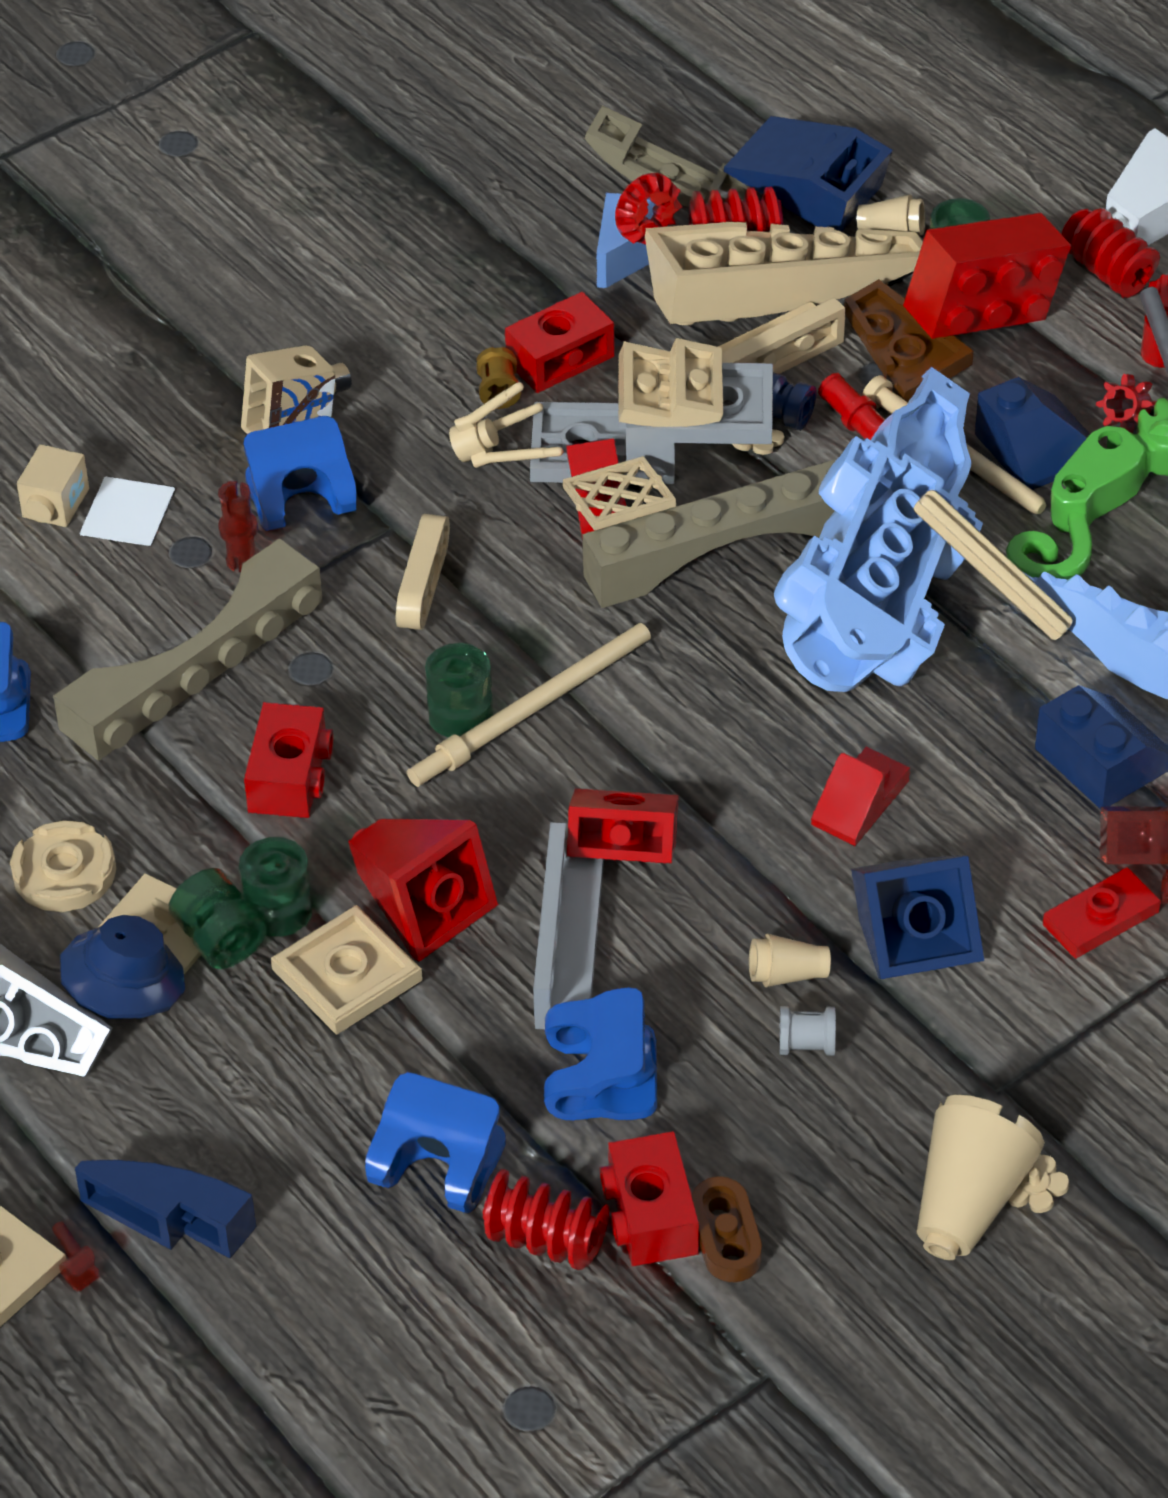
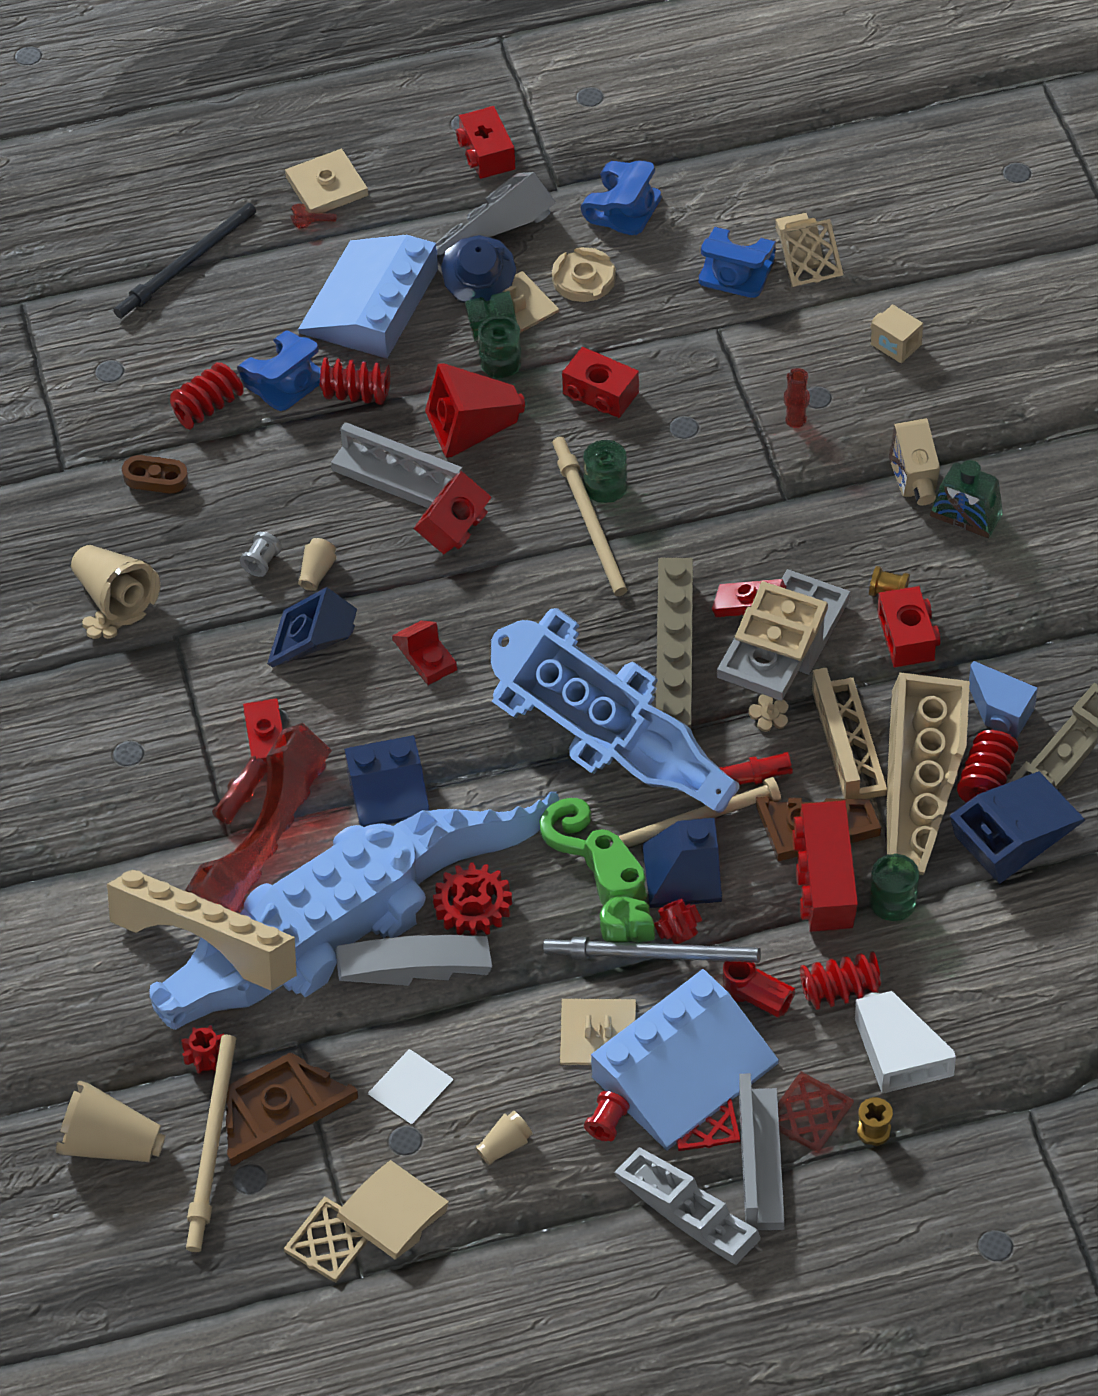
camera: 115 degrees right, 5 degrees up
(119, 701) = (743, 409): dark tan arch -> none
(127, 511) = (869, 375): white sticker -> none
(168, 1203) = (313, 253): dark blue slope -> none
(224, 1094) = (372, 293): none -> light blue slope
(298, 460) = (850, 456): blue piece -> none
(331, 311) = (969, 499): none -> clear green torso
(346, 969) = (418, 364): tan plate -> none
(351, 1421) = (143, 293): none -> black bar
(422, 571) = (712, 486): tan beam -> none
(422, 1032) = (354, 382): none -> red piece
(476, 437) = (831, 553): tan plant -> none
(620, 1064) = (295, 463): blue piece -> none
(622, 513) = (718, 566): tan window -> none
(633, 208) = (984, 684): red gear -> none
(650, 1170) = (196, 444): red brick -> none
(792, 401) = (785, 730): dark blue wheel -> none
(893, 215) = (948, 871): tan cone -> none
(993, 564) = (550, 760): tan axle -> none

